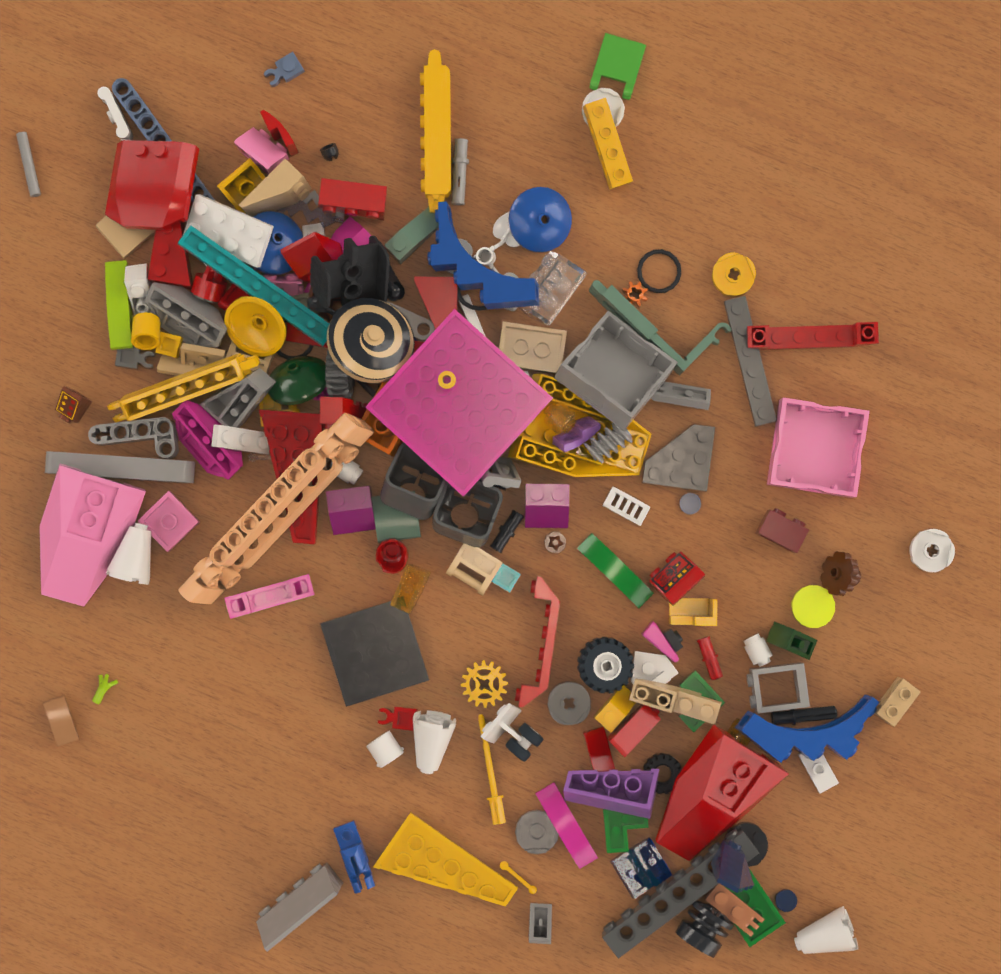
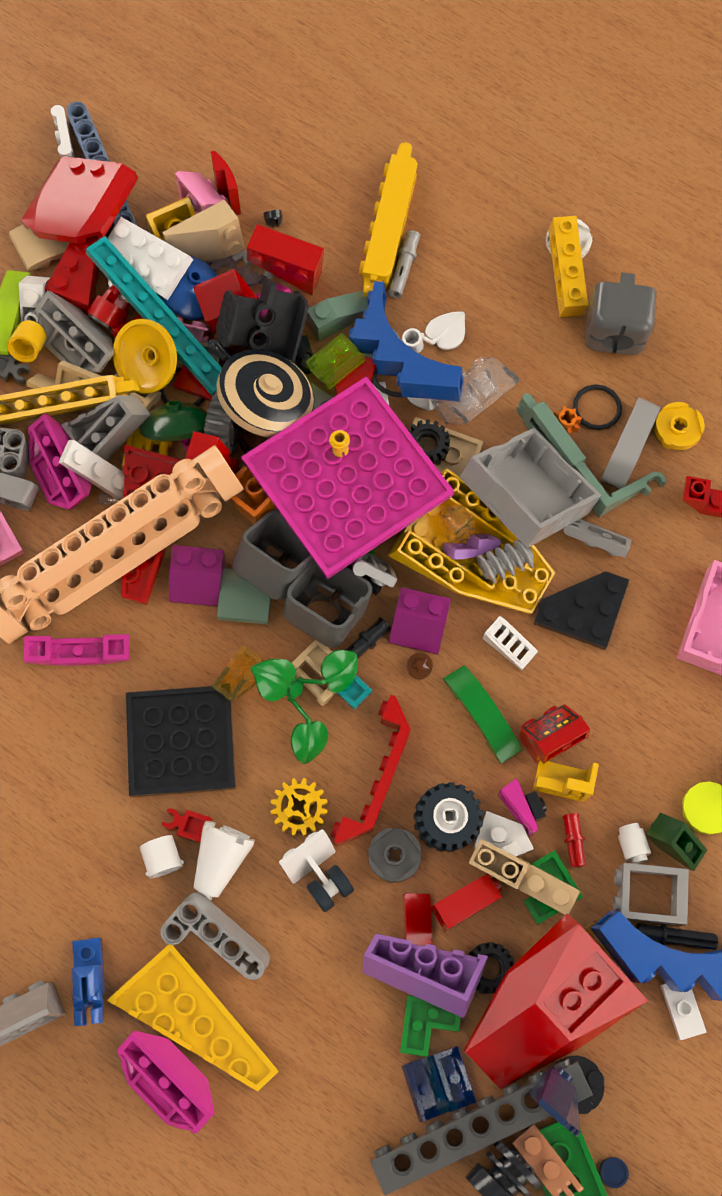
camera: 10 degrees right, 15 degrees down
(169, 345) = (47, 363): yellow plate -> none
(287, 68) = (250, 134): sand blue plate -> none
(350, 472) = (205, 534): white brick -> none
(392, 555) = (228, 634): red hair -> none
(421, 288) = (335, 360): none -> clear neon green plate
(435, 915) = (166, 1081): none -> dark pink wedge
(443, 590) = (277, 679): none -> green plant
(473, 810) = (217, 940): none -> light grey beam
(495, 800) = (278, 952): yellow piece -> none
(505, 866) = (269, 1039): yellow hinge -> none
(526, 219) = (468, 333): blue dish -> none
(528, 337) = (435, 432): none -> black tyre
(536, 832) = (319, 1006): flat silver tile -> none
(540, 923) = (296, 1124): light grey slope -> none
(566, 825) = (358, 1007): dark pink slope -> none
(615, 709) = (448, 874): yellow slope -> none
(619, 61) = (595, 198): bright green flag -> none
(663, 188) = (620, 316): none -> dark grey piece
(690, 503) = (584, 658): piece -> none
(695, 301) = (630, 443): none -> light grey beam
(750, 362) = (681, 523): dark grey plate -> none
(782, 531) = (688, 709): dark red brick -> none

